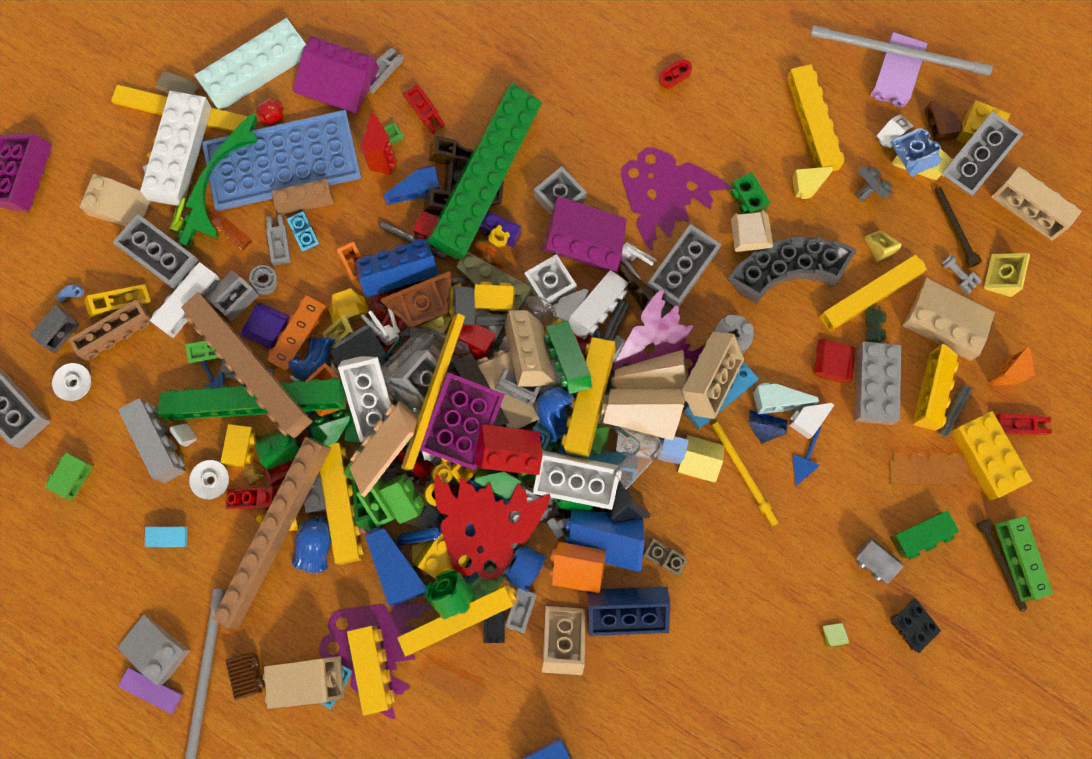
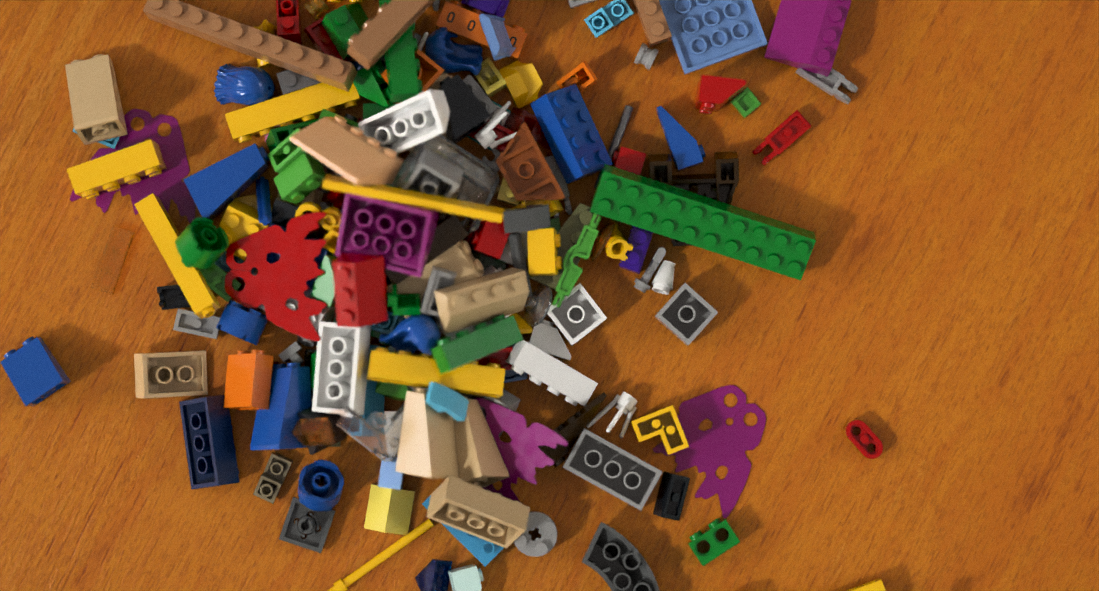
camera: 80 degrees right, 10 degrees up
(244, 675) = (97, 34): reddish brown brick -> none
(302, 319) = (496, 36): none -> medium blue slope
(341, 204) = (646, 56): none -> light grey wheel
(509, 213) = (642, 284): none -> light grey hinge
(514, 276) = (580, 249): none -> bright green piece
(525, 415) = (404, 303): none -> green bracket
(527, 210) = (664, 278): none -> white cone
(585, 234) = (636, 349): magenta slope -> none
(615, 387) = (447, 400): none -> medium azure slope
(616, 321) = (534, 394): dark grey axle -> none
(631, 507) = (314, 432): none -> clear orange slope
(650, 221) = (662, 423): none -> yellow brick
(680, 503) = (316, 497): none -> blue brick
(709, 530) = (293, 531): none -> dark grey plate
(710, 225) = (671, 496): none -> black slope
(751, 231) = (663, 546): tan slope -> none

